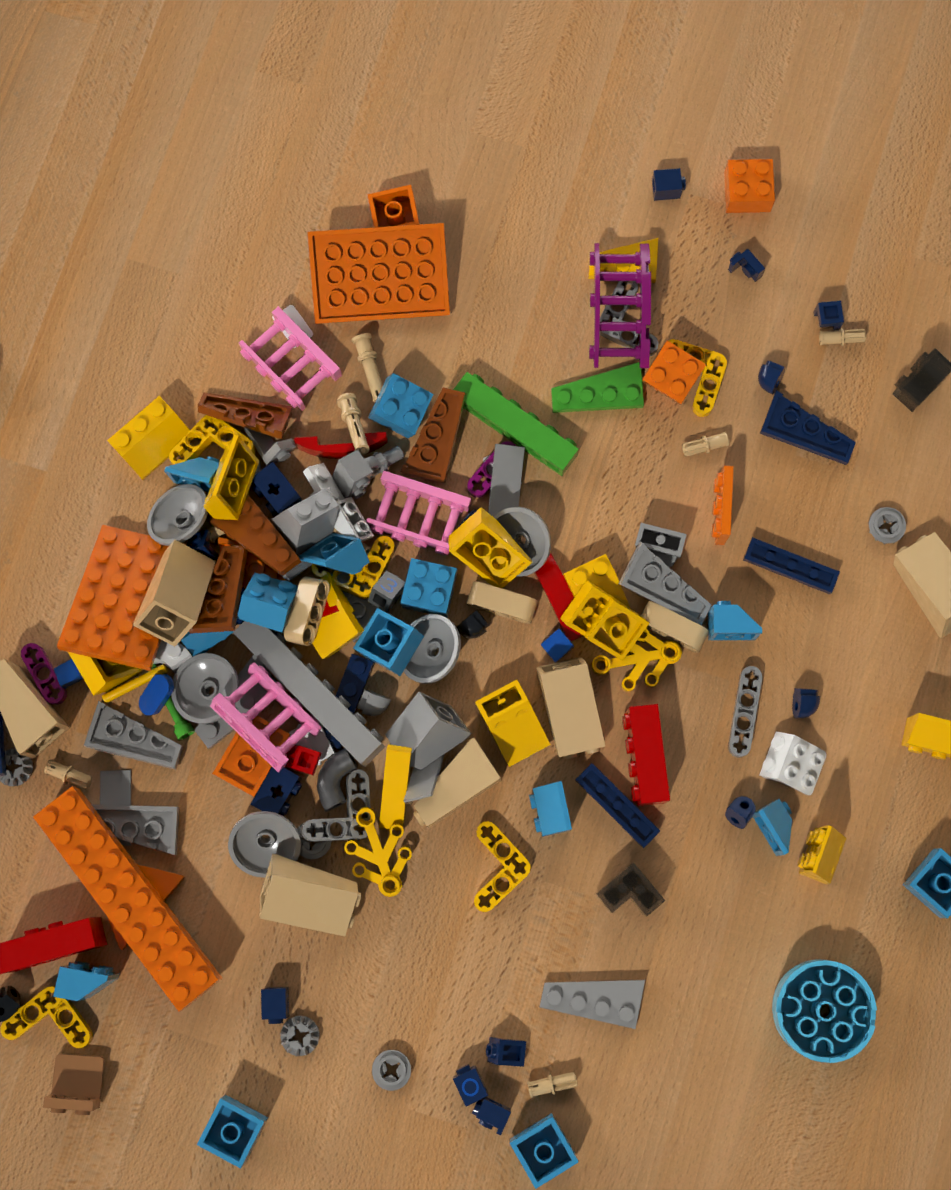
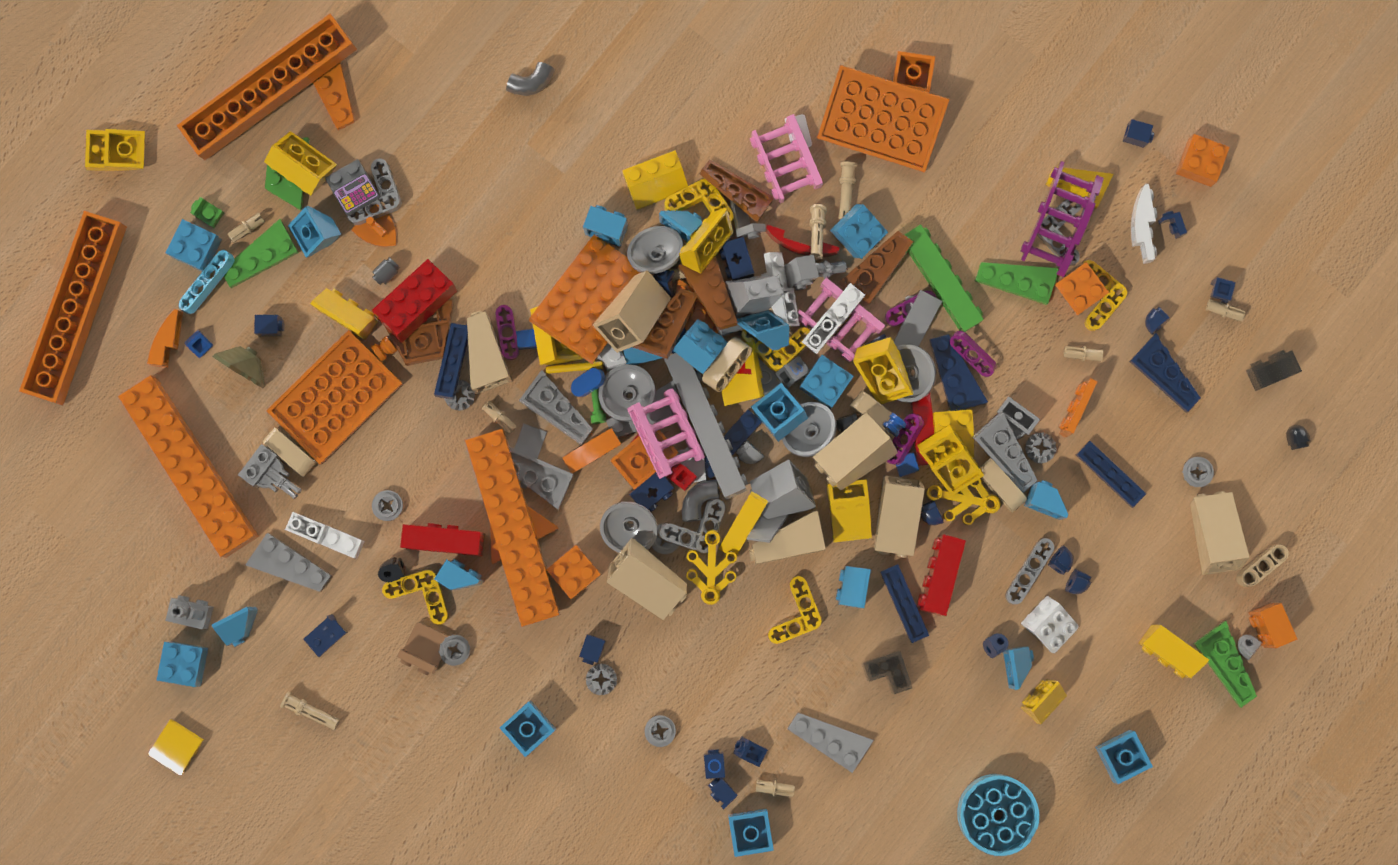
camera: 15 degrees right, 5 degrees up
(111, 508) = (605, 225): none -> dark azure brick
(119, 1078) = (456, 658): none -> light grey gear
(189, 771) = (591, 451): none -> orange slope
(220, 921) = (574, 572): none -> orange brick
(408, 513) = (833, 318): none -> white slope
(491, 654) = (854, 452): none -> tan slope
(524, 604) = (894, 424): none -> blue wheel
(550, 611) = (911, 438): none -> magenta beam
(564, 490) = (973, 361): none -> magenta beam
(574, 526) = (957, 381): none -> dark blue wing
(607, 690) = (931, 514): none -> dark blue piece
(695, 576) = (1034, 453): none -> light grey gear
(709, 274) = (1142, 217): none -> white slope
(776, 685) = (1061, 560): none -> dark blue piece

